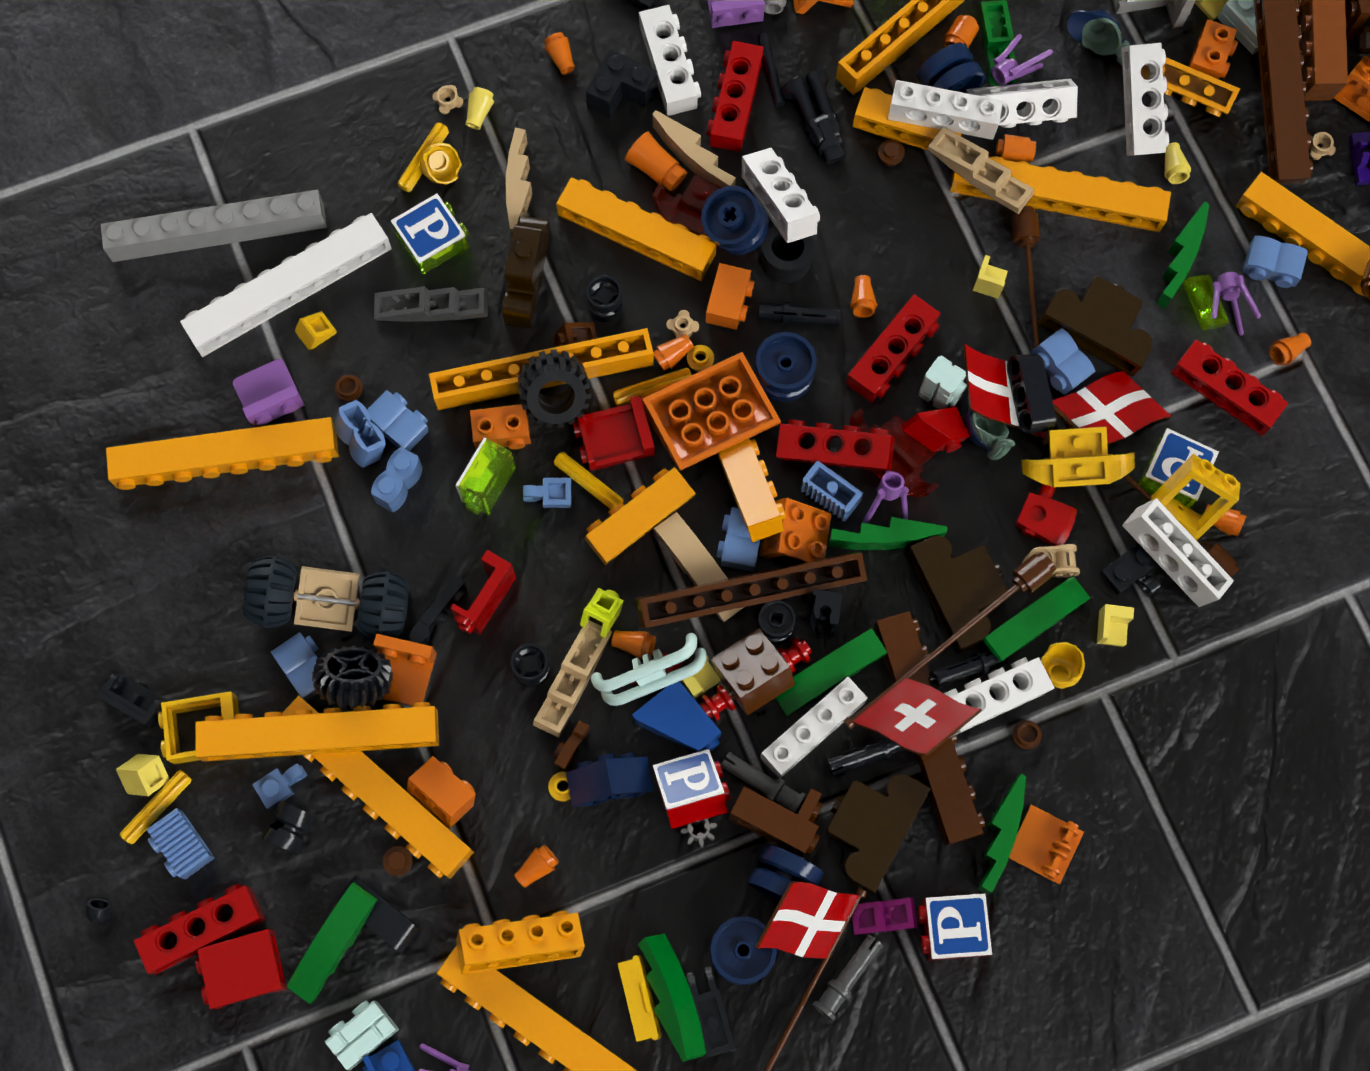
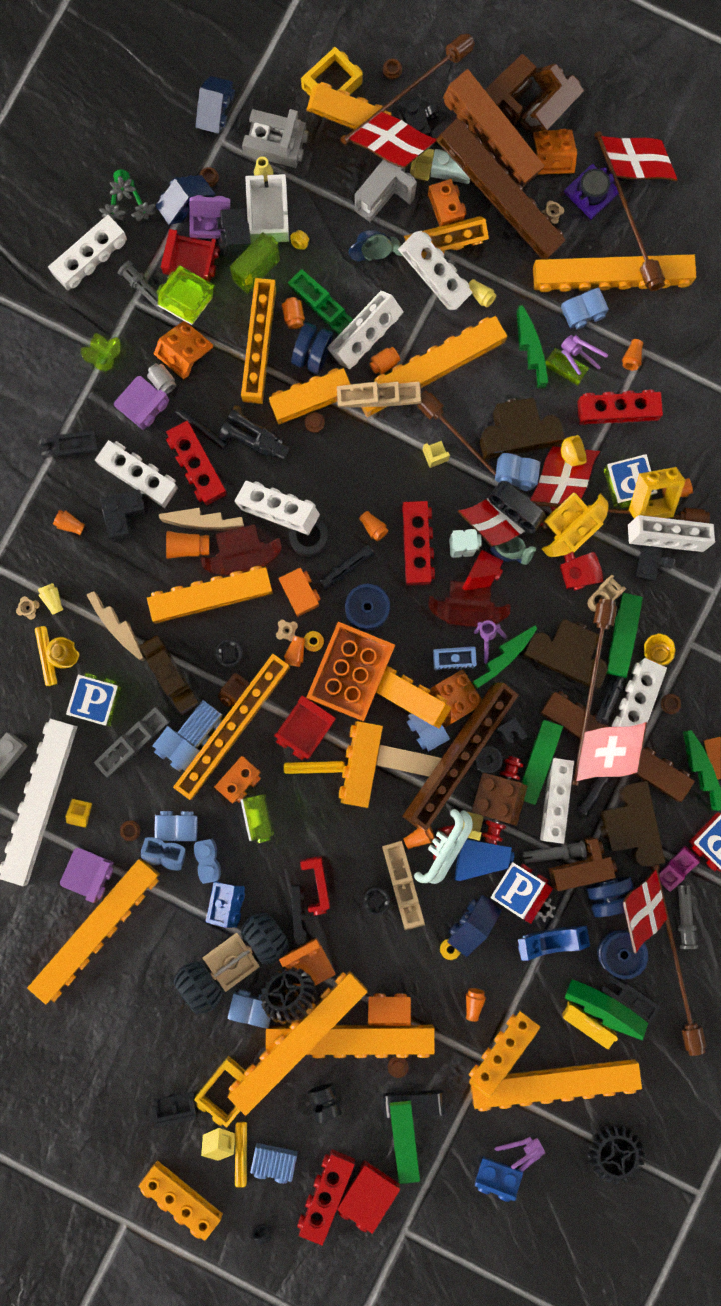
camera: 45 degrees left, 10 degrees up
(51, 797) = (180, 1201): none -> light orange brick
(276, 786) = (296, 1085): medium blue plate -> none
(361, 1034) = (461, 1173): light aqua brick -> none
(375, 540) = (225, 905): none -> bracket
(466, 342) = (176, 748): none -> medium blue brick
(512, 339) = (201, 724): none -> medium blue brick
(554, 493) = (301, 791): medium blue plate -> none
(558, 408) = (242, 730): black tyre -> none
(567, 751) = (436, 929): reddish brown plate -> none
(604, 607) = (384, 826): neon yellow window -> none
(649, 387) = (301, 681): yellow axle -> none
(678, 871) = (552, 941): none -> blue arch
(735, 220) = (267, 535): dark blue wheel -> none
(877, 458) = (412, 652): red brick -> none
(945, 108) = (329, 375): white brick -> none
(1008, 69) = (342, 315): medium lavender plant -> none
(1113, 624) = (667, 602): light yellow panel -> none
(1141, 388) = (573, 451): none -> yellow hair

